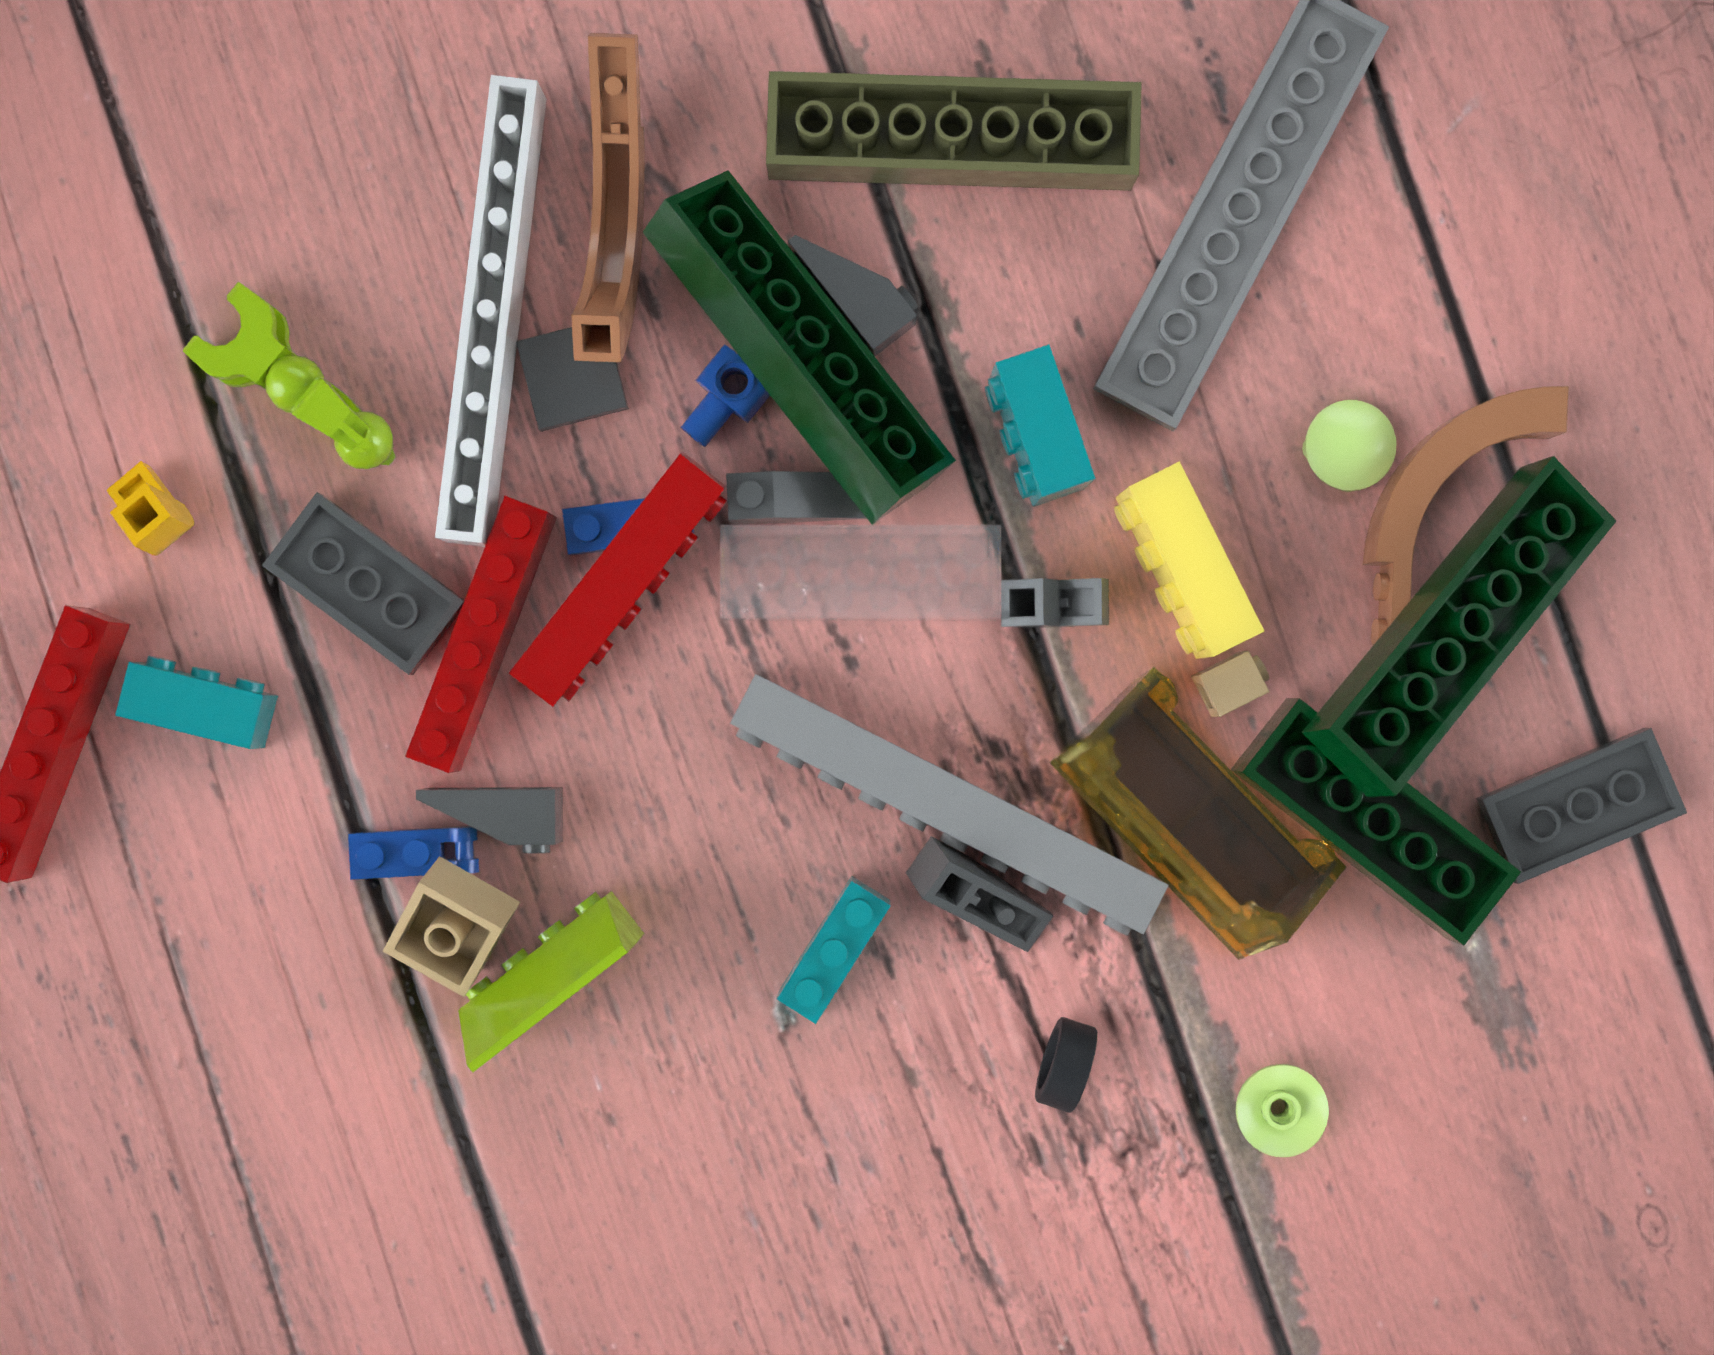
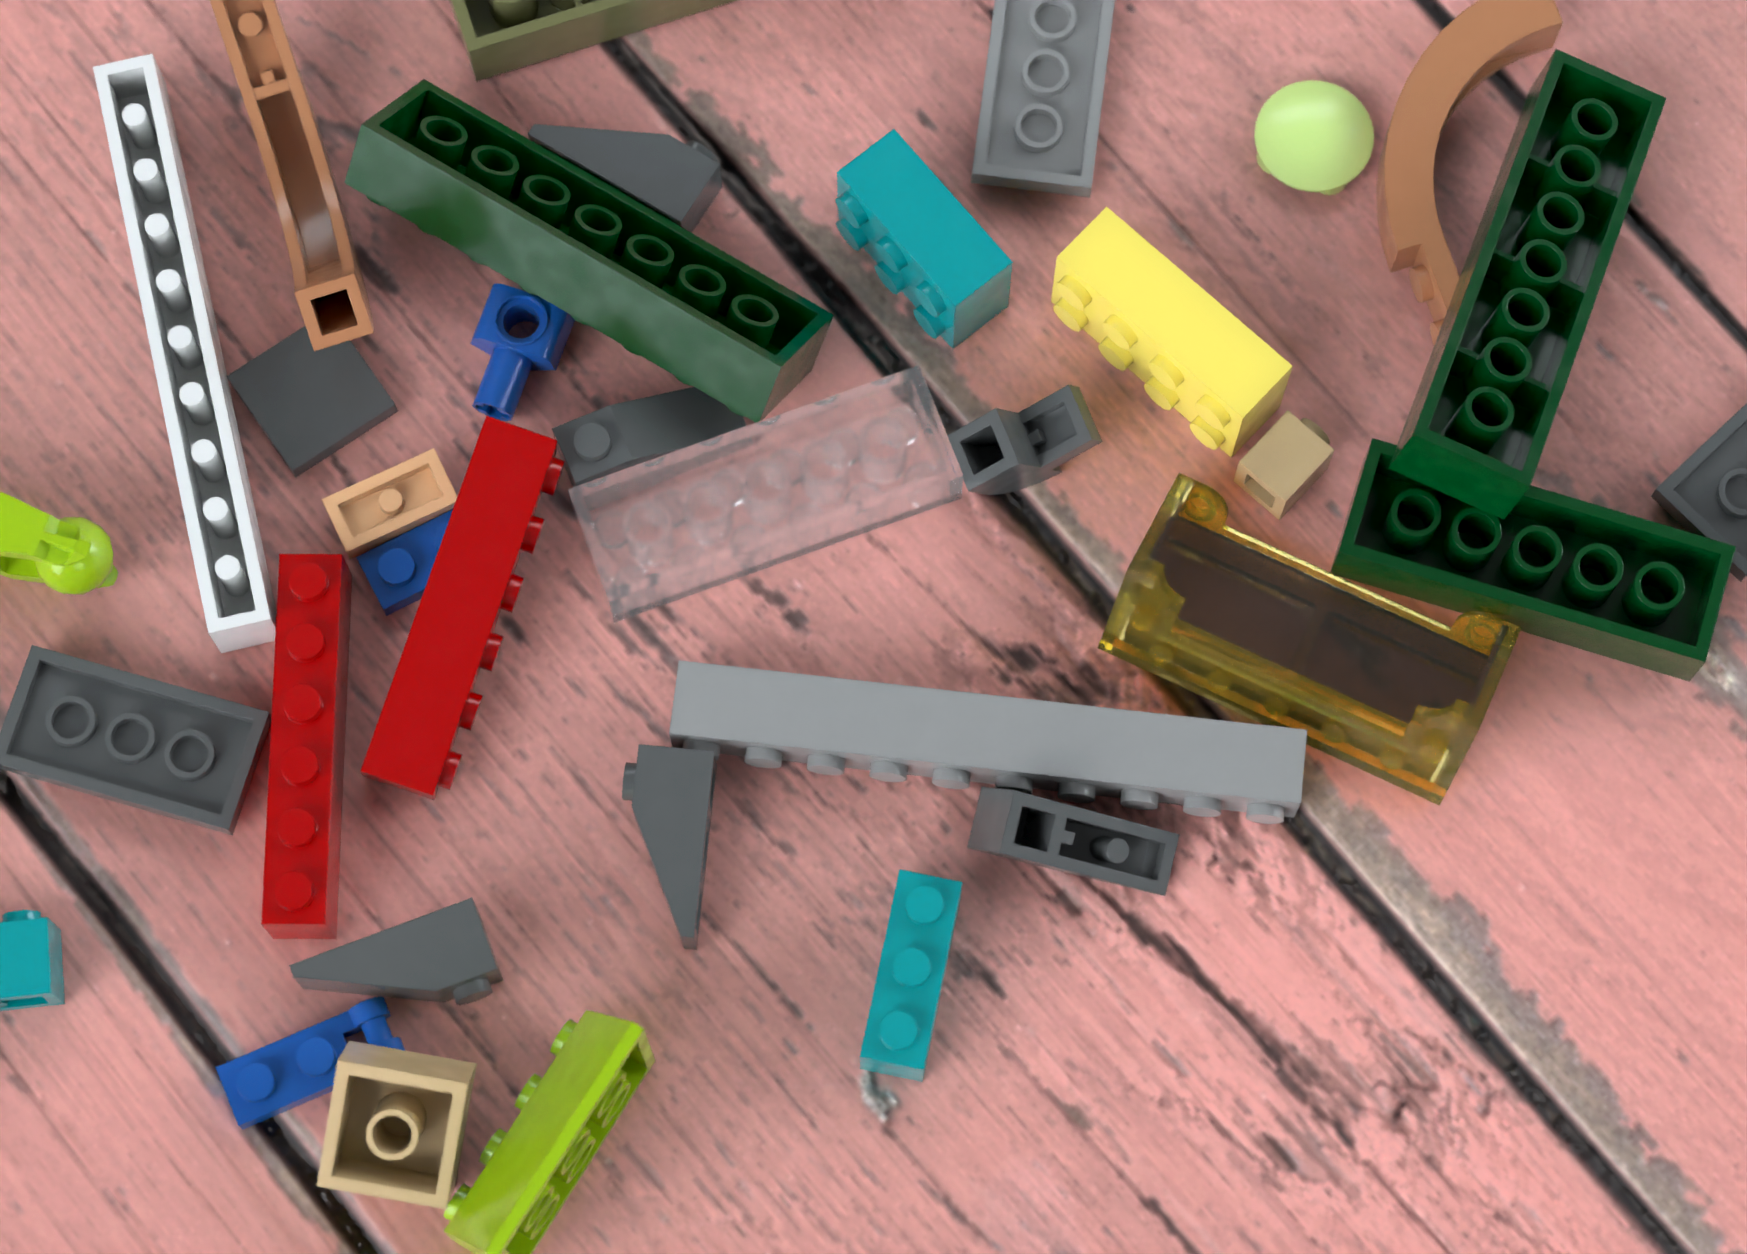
camera: 20 degrees left, 15 degrees down
(599, 479) = (390, 503): none -> light nougat plate
(712, 781) = (673, 811): none -> dark grey slope
(1066, 1065) = (1269, 1006): black tyre -> none
(1297, 1126) = (1591, 944): yellowish green dish -> none

